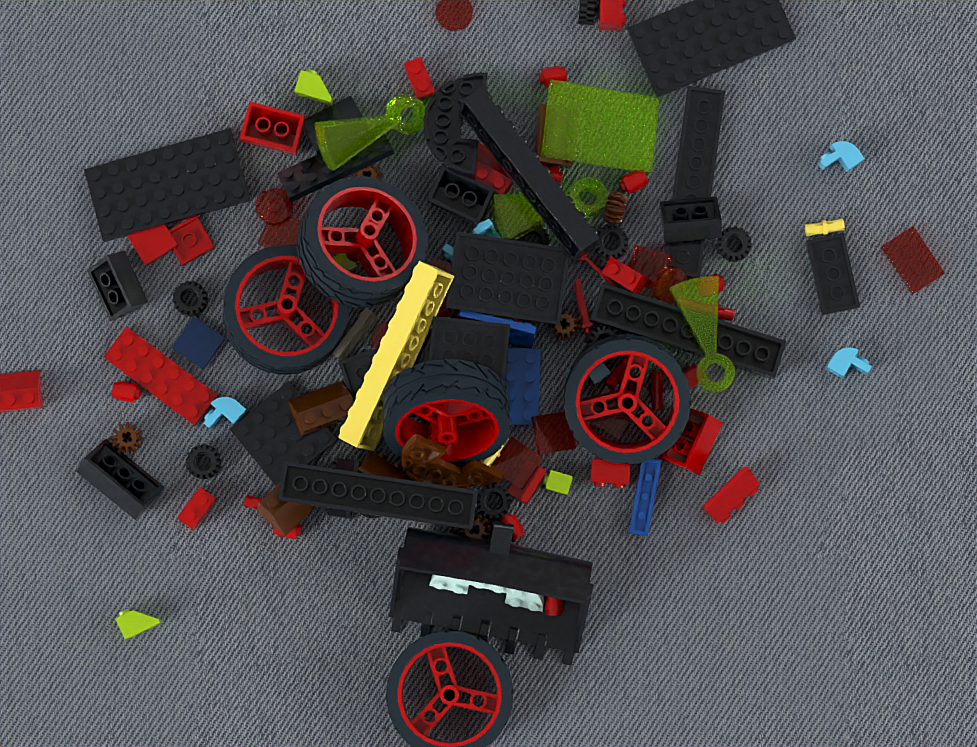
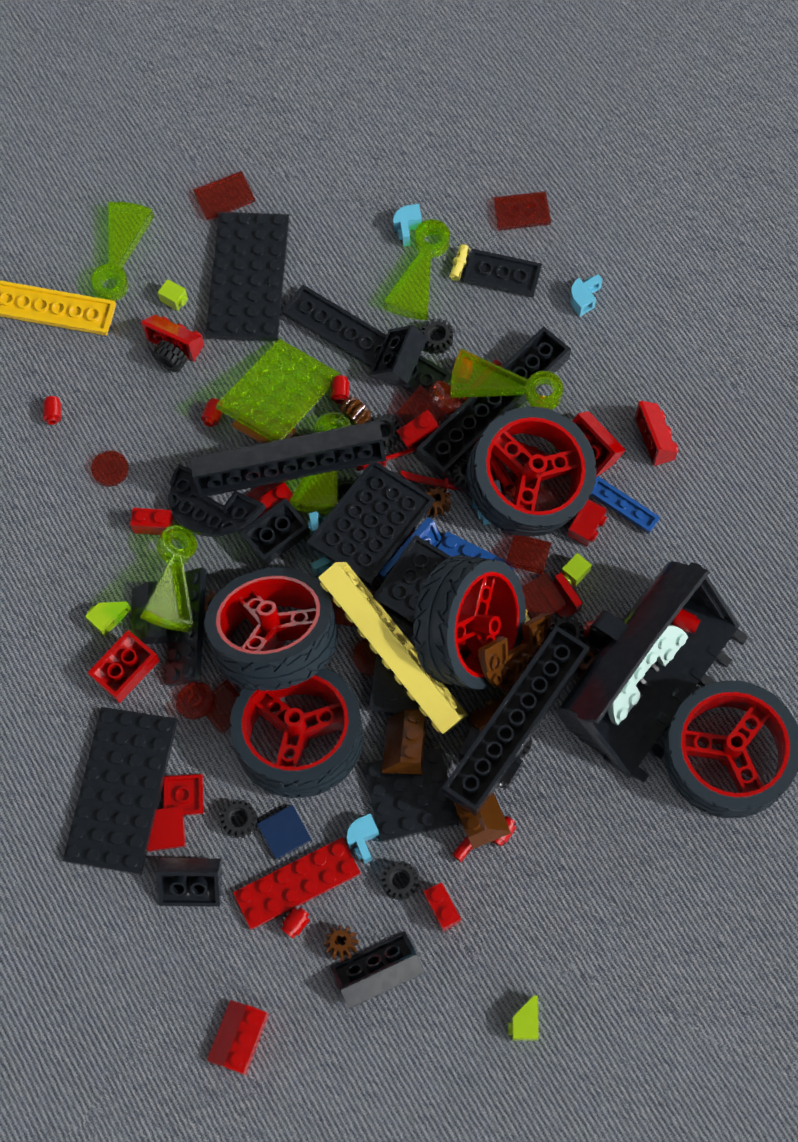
camera: 65 degrees left, 15 degrees down
(354, 334) = (342, 669): light grey plate -> none
(769, 198) = (412, 291): none -> clear neon green piece

